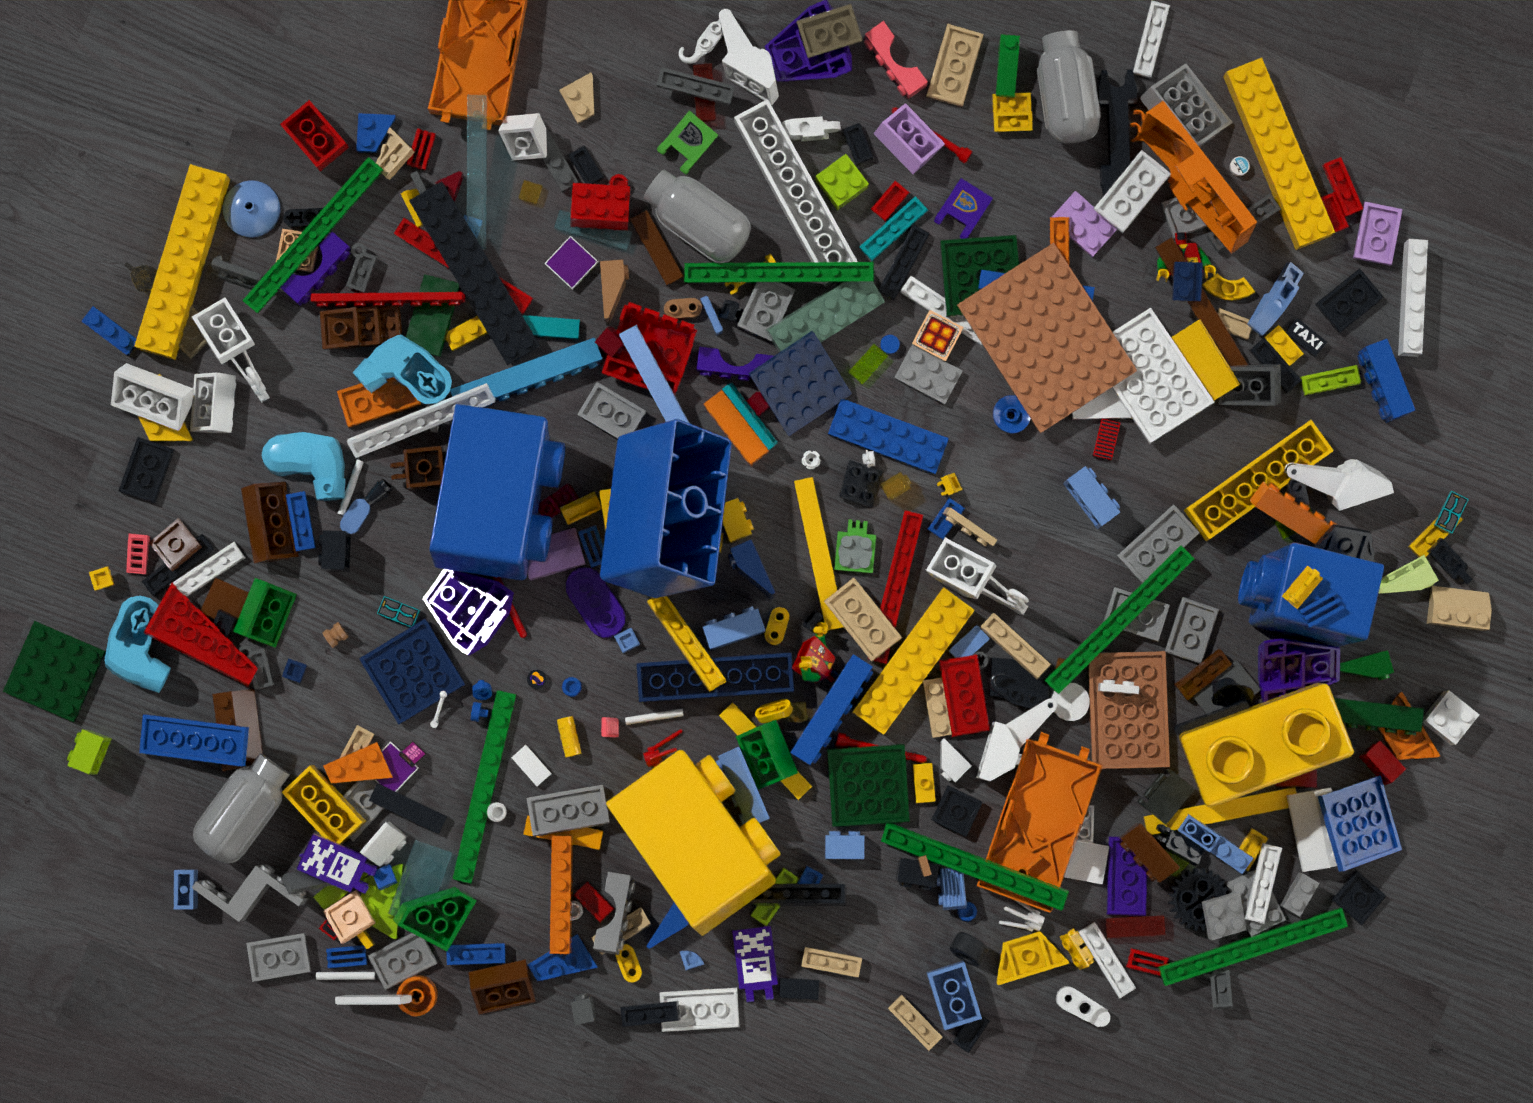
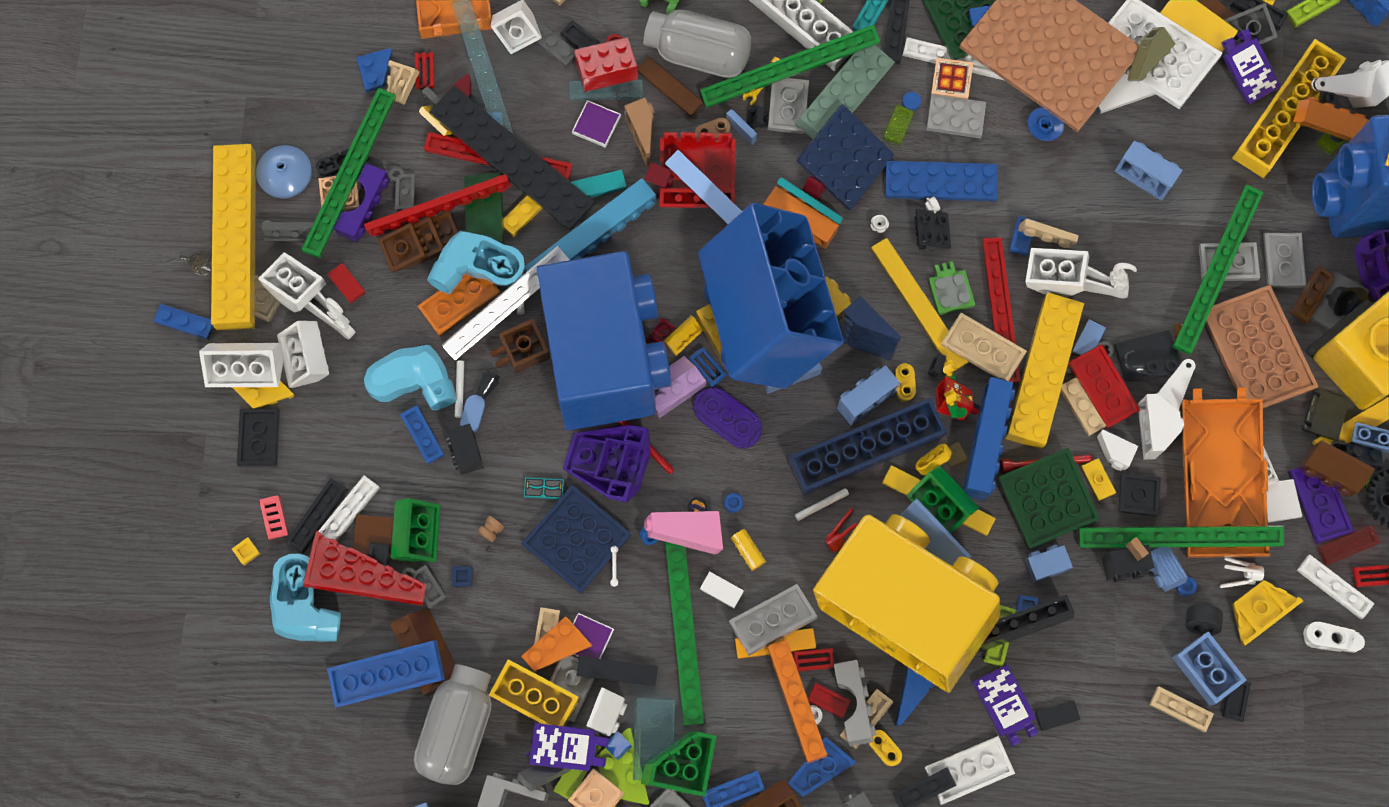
camera: 15 degrees left, 10 degrees down
(54, 671) = (226, 657): dark green plate -> none
(88, 751) = (284, 721): lime brick -> none
(175, 544) = (308, 496): tile -> none
(268, 522) = (392, 445): reddish brown slope -> none
(276, 345) = (346, 283): none -> red tile
(314, 135) = (322, 86): red brick -> none
(412, 754) = (603, 617): tile -> none
(478, 712) = (653, 556): blue tile -> none
(496, 812) = (704, 645): white plate -> none
(520, 700) = (687, 529): none -> bright pink slope
(530, 192) = (537, 75): clear yellow tile -> none
(609, 863) = (812, 660): none -> red tile
(610, 727) = (783, 527): coral slope -> none
(611, 411) = (679, 240): light grey plate -> none
(627, 640) = (770, 442): medium blue tile -> none
(687, 642) = (829, 421): yellow tile -> none
(691, 959) = (943, 724): medium blue tile -> none
(711, 363) = (758, 167): dark purple arch -> none
(831, 962) = (1079, 678): tan plate -> none
(896, 486) = (966, 220): clear yellow brick -> none
(950, 483) = (1015, 202): yellow tile -> none
(1015, 646) = (1132, 325): tan plate -> none
(1071, 702) = (1206, 359): white tile -> none
(1081, 957) = (1309, 591): yellow hinge -> none
(1106, 439) = (1137, 120): tile -> none
(1110, 686) = (1250, 327): white plate -> none
(1142, 377) = (1150, 51): none -> olive slope
(1157, 543) = (1221, 193): light grey plate -> none
(1237, 426) = (1250, 67): none -> dark purple tile

